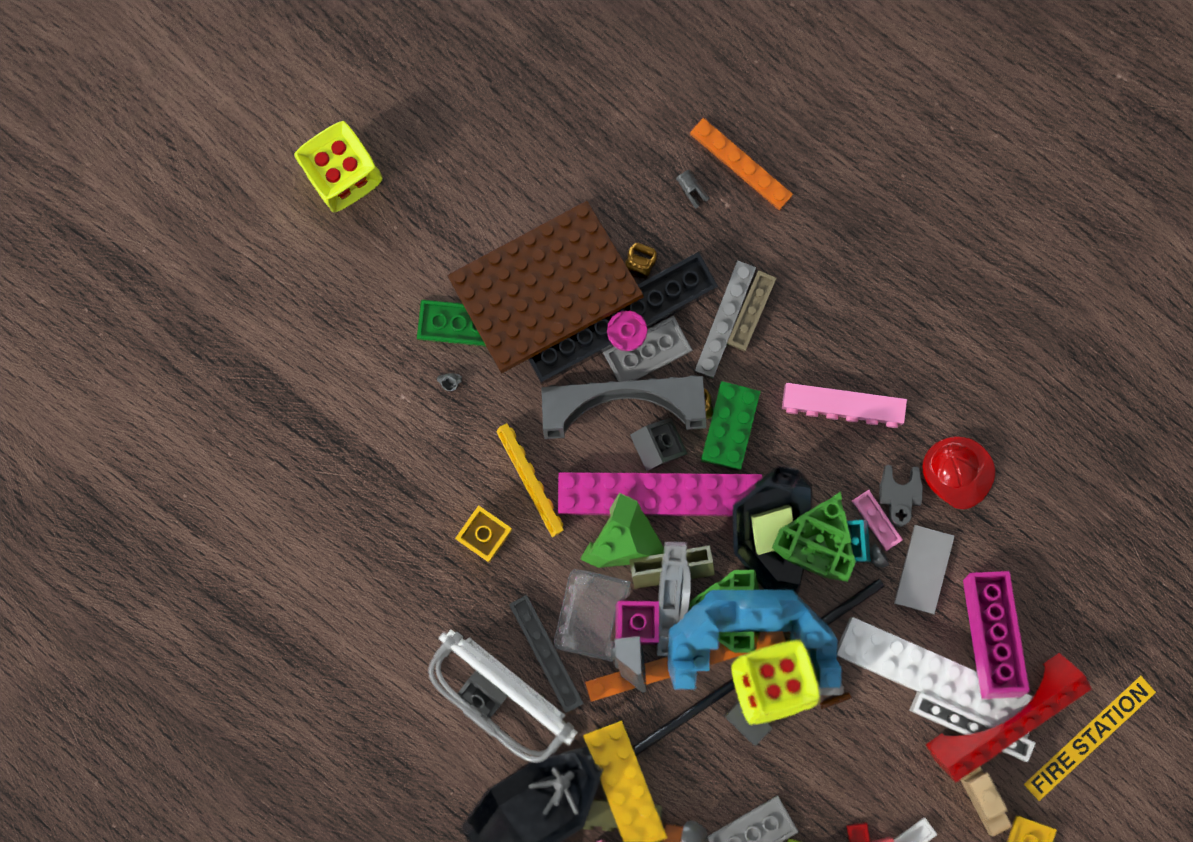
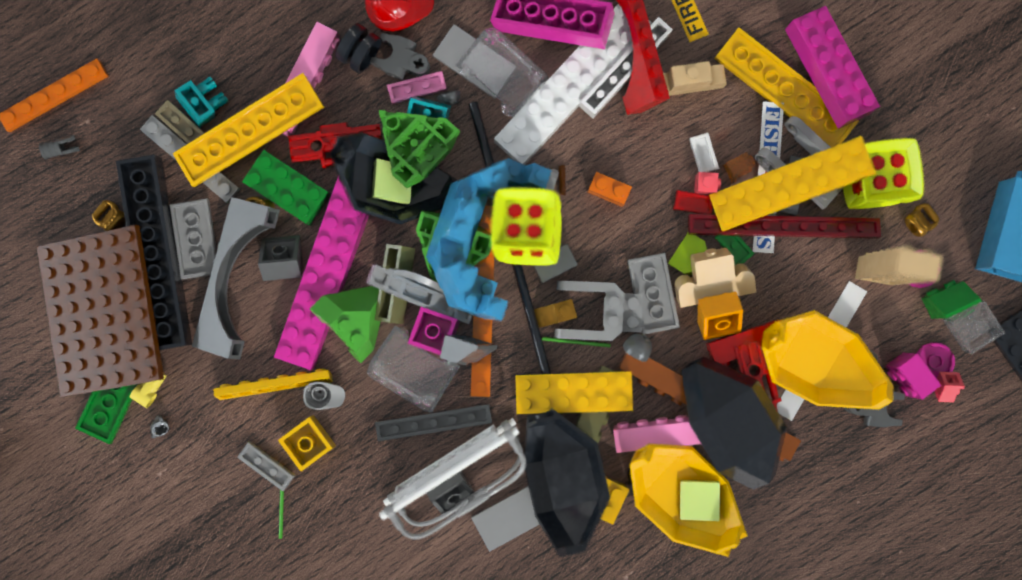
camera: 70 degrees left, 5 degrees up
(413, 528) = (281, 514): none -> bright green axle
(446, 500) = (266, 466): none -> light grey tile
(473, 761) = (506, 519): none -> light grey tile
(480, 356) = (146, 392): none -> light yellow piece
(537, 541) = (331, 395): none -> light grey cap
(561, 785) = (553, 449): light grey plant -> none
(627, 330) = (165, 251): dark pink tile -> none
(676, 771) = (576, 342): none -> bright green axle
(698, 740) = (555, 313): none -> pearl gold slope
(723, 806) = (620, 313): none -> light grey plate
(774, 370) = (248, 130): none -> yellow plate
(781, 308) = (195, 104): none -> teal brick
(795, 453) = (301, 144): none -> red piece
(843, 752) = (609, 189): none -> orange brick
(894, 450) = (358, 48): none -> black wheel
(924, 603) = (502, 70): none -> clear windscreen

